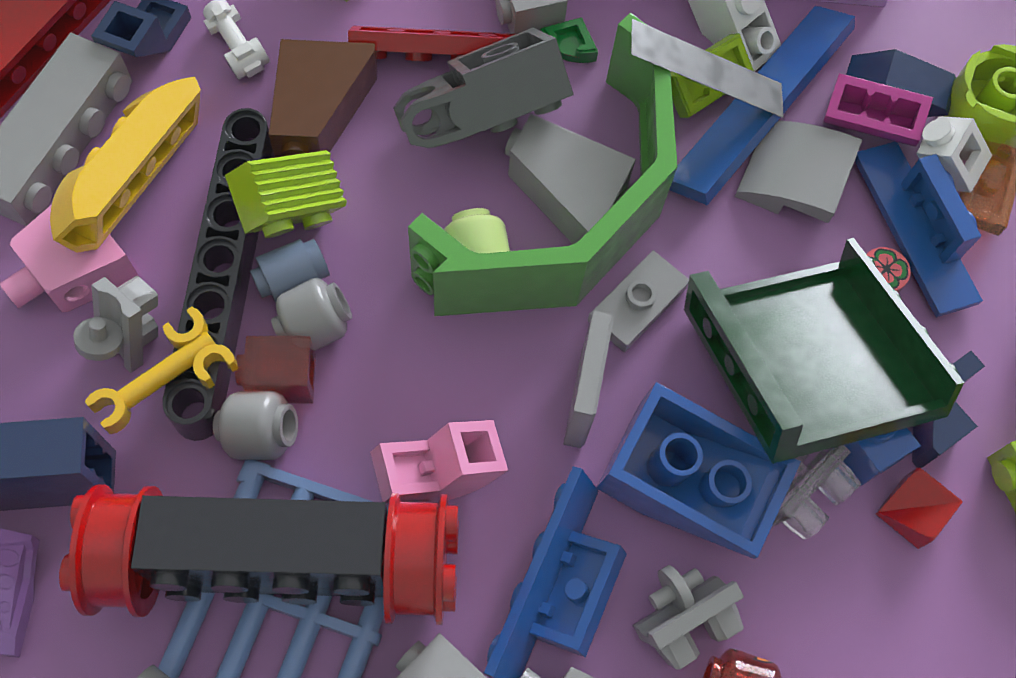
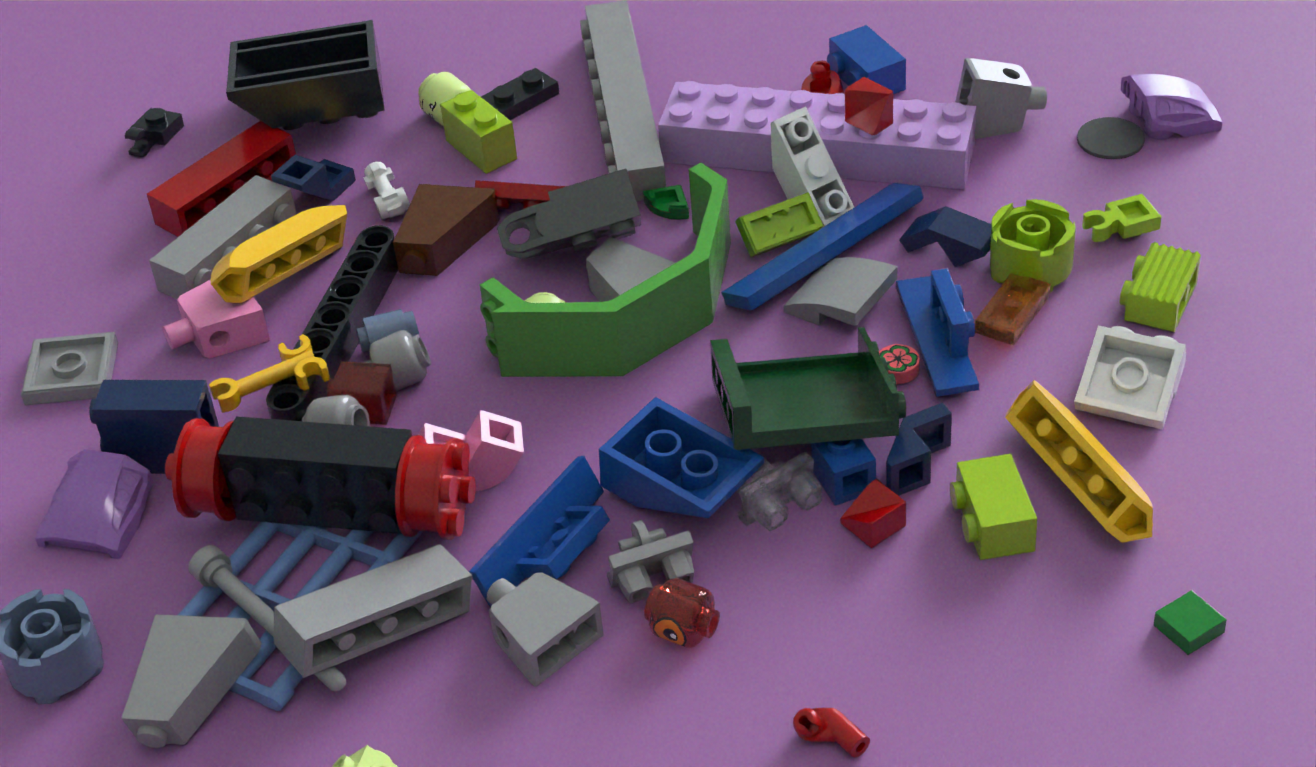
camera: 20 degrees right, 25 degrees down
(118, 323) = (243, 348): light grey hips -> none
(286, 192) = (396, 276): lime brick -> none
(588, 379) = (604, 400): light grey tile -> none
(642, 299) = (672, 371): light grey plate -> none
(706, 68) = (762, 205): flat silver sticker -> none
(878, 110) = (917, 247): dark pink brick -> none
(955, 141) = (976, 273): white brick -> none

